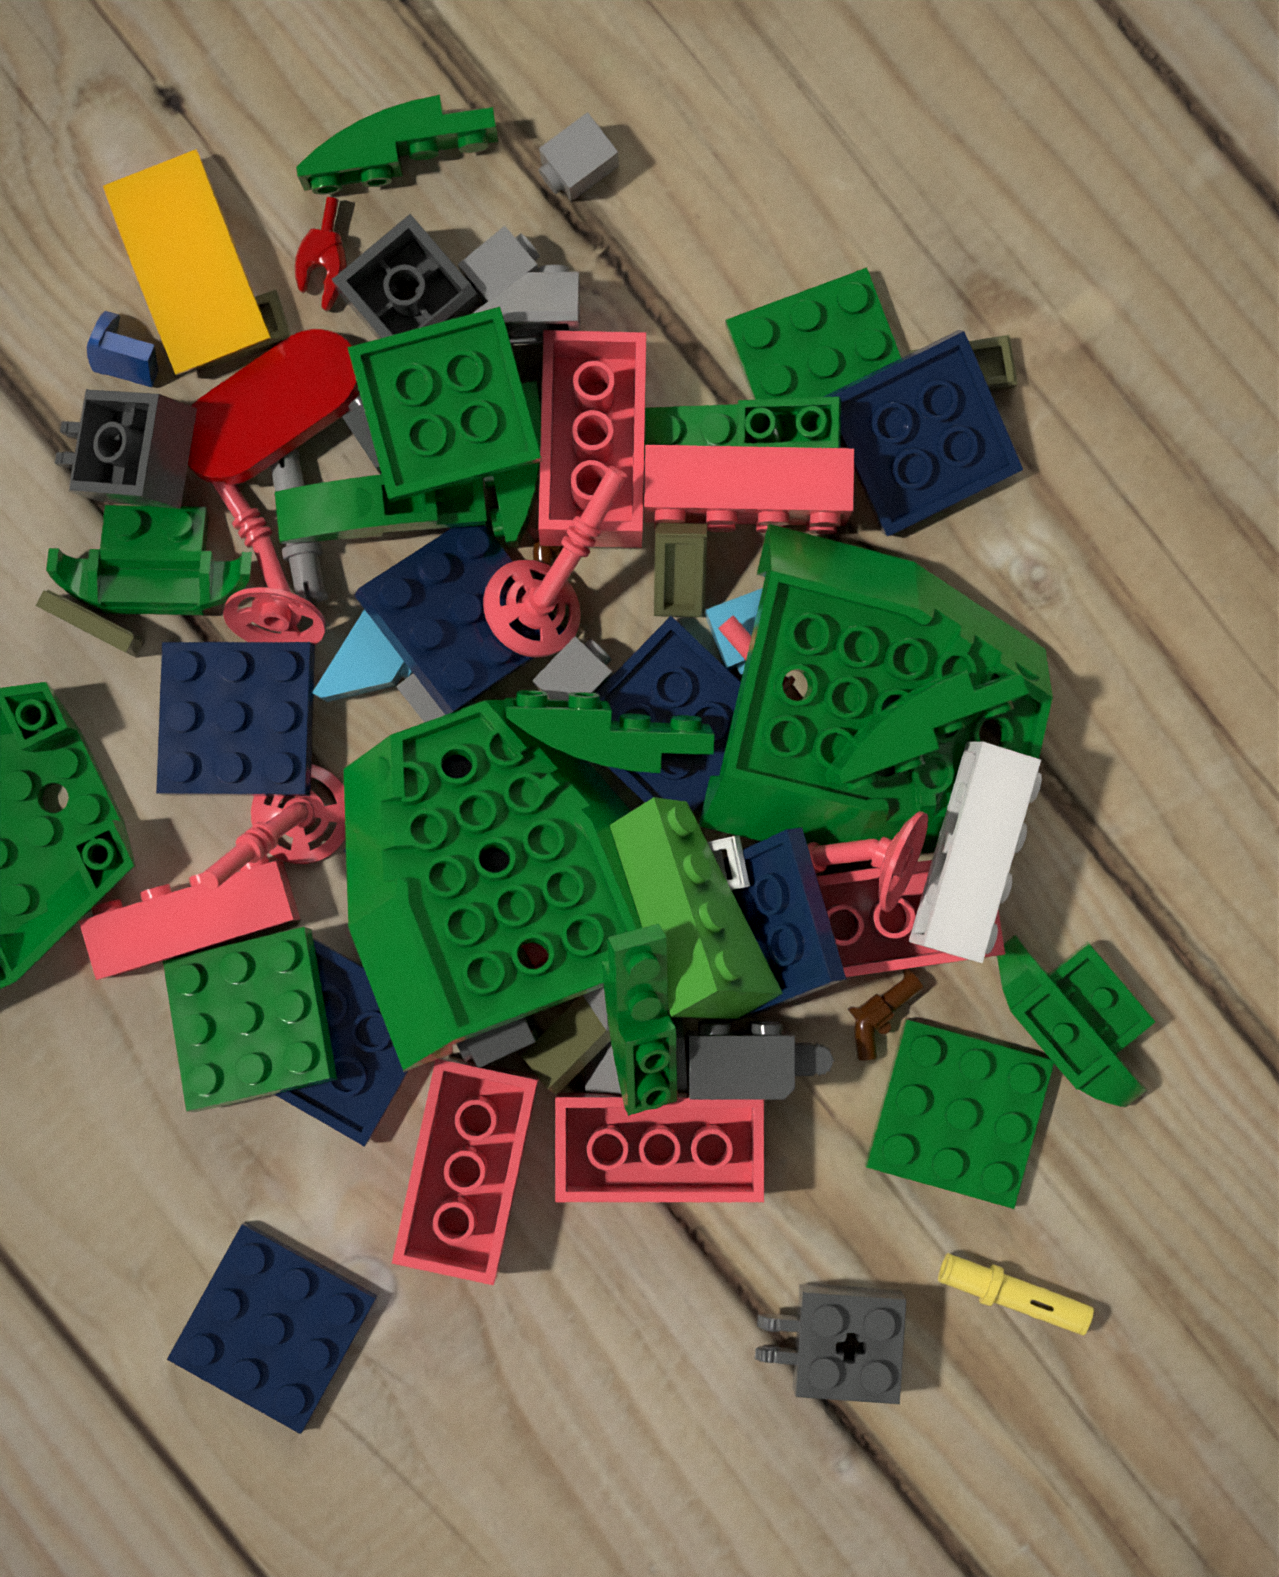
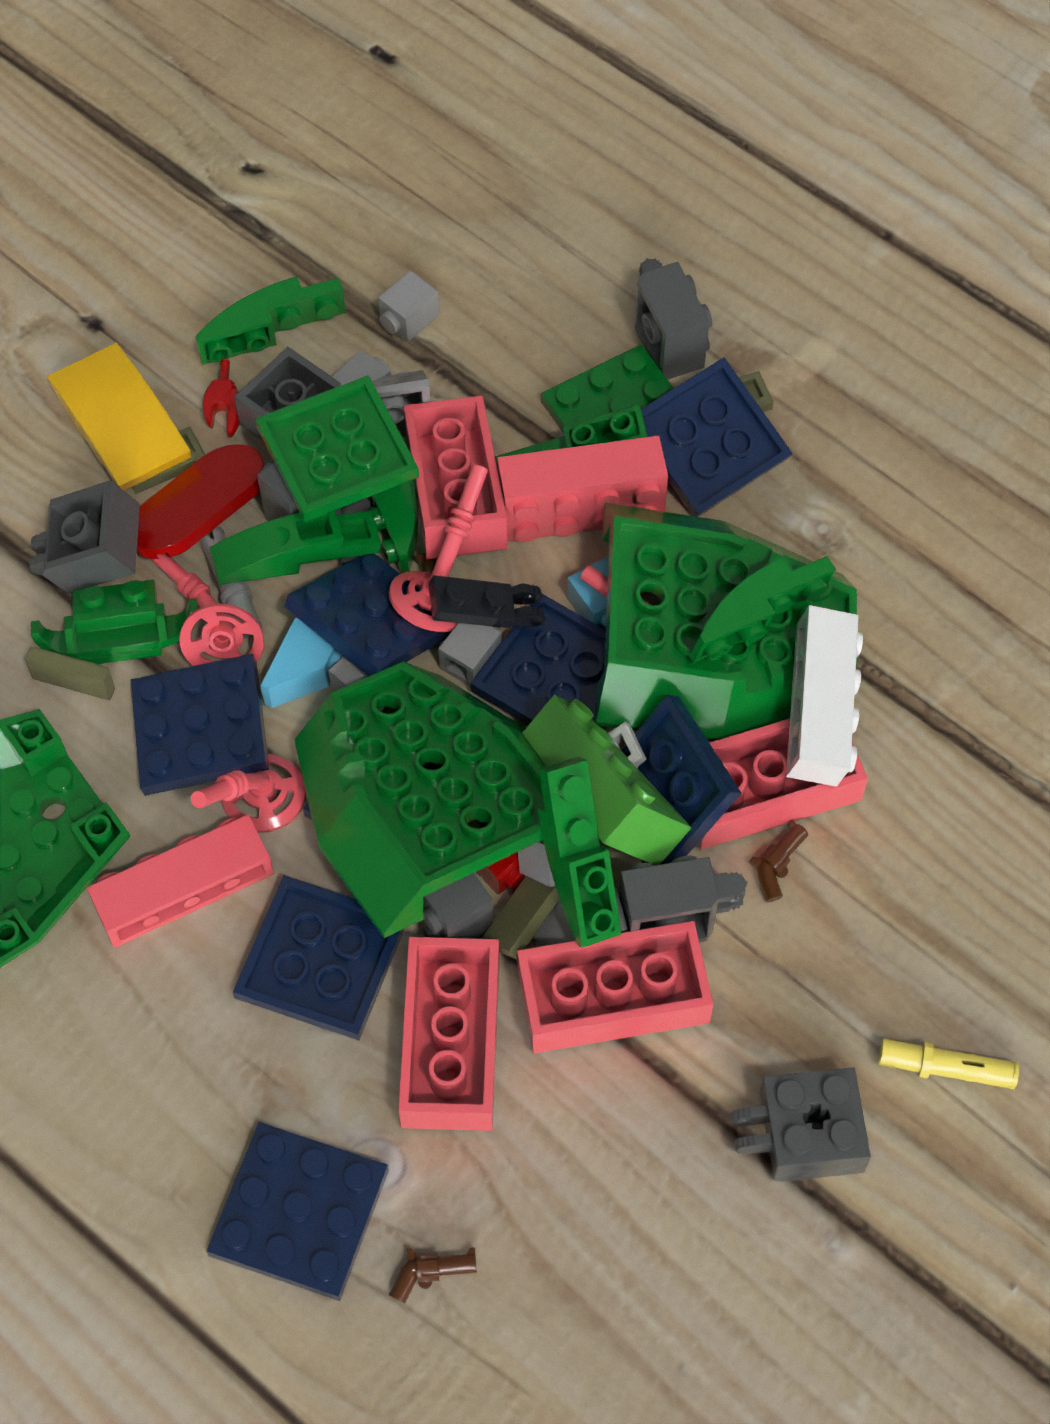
camera: 15 degrees left, 25 degrees down
(120, 355) = (68, 478): blue tile -> none
(249, 1020) = (242, 946): green plate -> none
(401, 1418) = (428, 1268): none -> reddish brown piece
(586, 731) = (488, 670): green slope -> none
(592, 633) = (484, 602): none -> black hinge
(680, 569) = (542, 553): olive tile -> none
(891, 856) = (760, 704): coral dish -> none
(909, 245) = (671, 319): none -> dark grey hinge
(959, 1113) = (862, 929): green plate -> none
(1077, 1017) = (943, 832): green plate -> none

